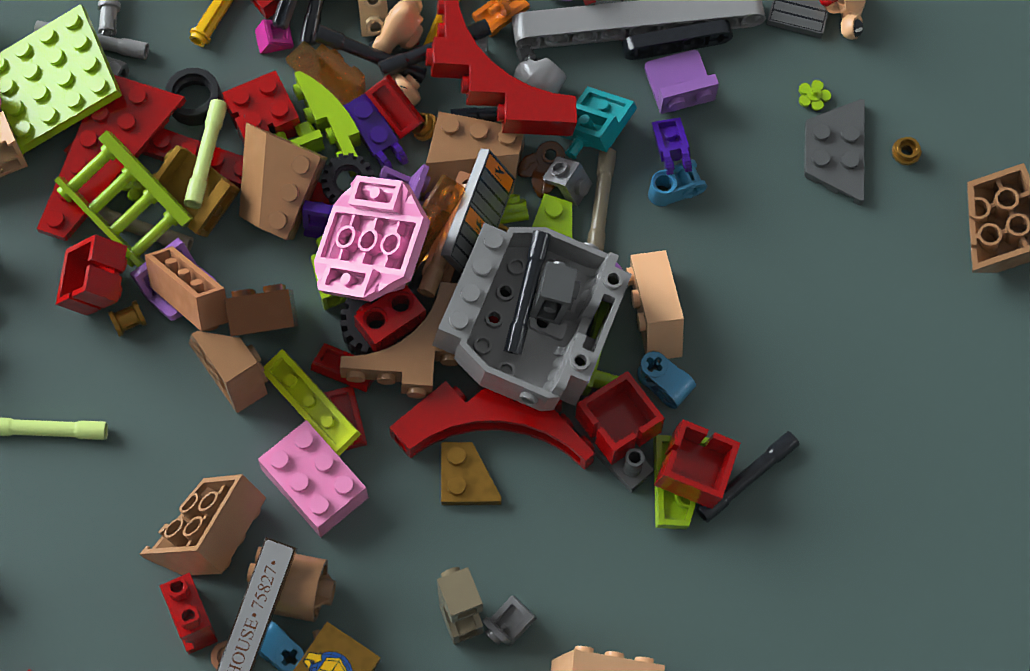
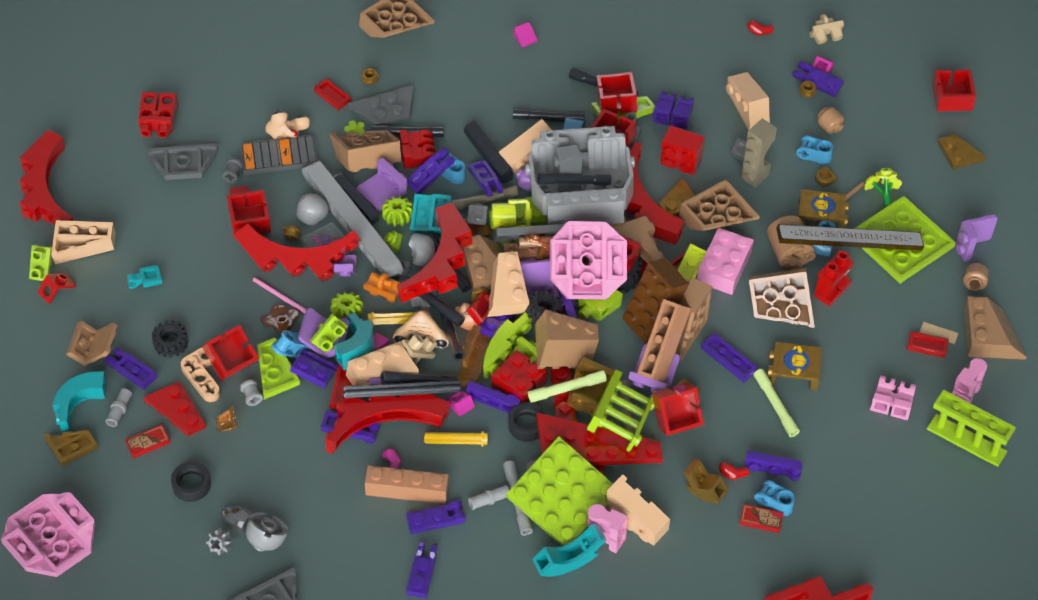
camera: 115 degrees left, 15 degrees down
(81, 481) = (796, 363): none -> pearl gold panel
(149, 401) = (729, 357): none -> dark purple plate
(263, 62) = (492, 397): none -> dark purple hinge
(399, 140) = (508, 286): none -> light nougat wedge
(401, 510) = (716, 208): none -> medium nougat wedge
(537, 202) = (505, 213): none -> neon yellow piece
(547, 506) = (682, 150): none -> red piece
(579, 61) = (393, 240): none -> lime plate
(630, 555) = (680, 113): none -> dark purple legs
(631, 217) = (485, 177): none -> dark purple hinge
(636, 77) = (397, 211): none -> lime gear
(686, 246) = (488, 152): none -> black brick
(703, 395) = (526, 114): none -> black piece
(725, 145) = (416, 147): none -> red legs
(758, 82) = (364, 150): none -> medium nougat wedge
(764, 185) = (437, 131): none -> black piece
(894, 91) = (332, 94): none -> red tile
(901, 406) = (524, 34): none -> dark pink slope

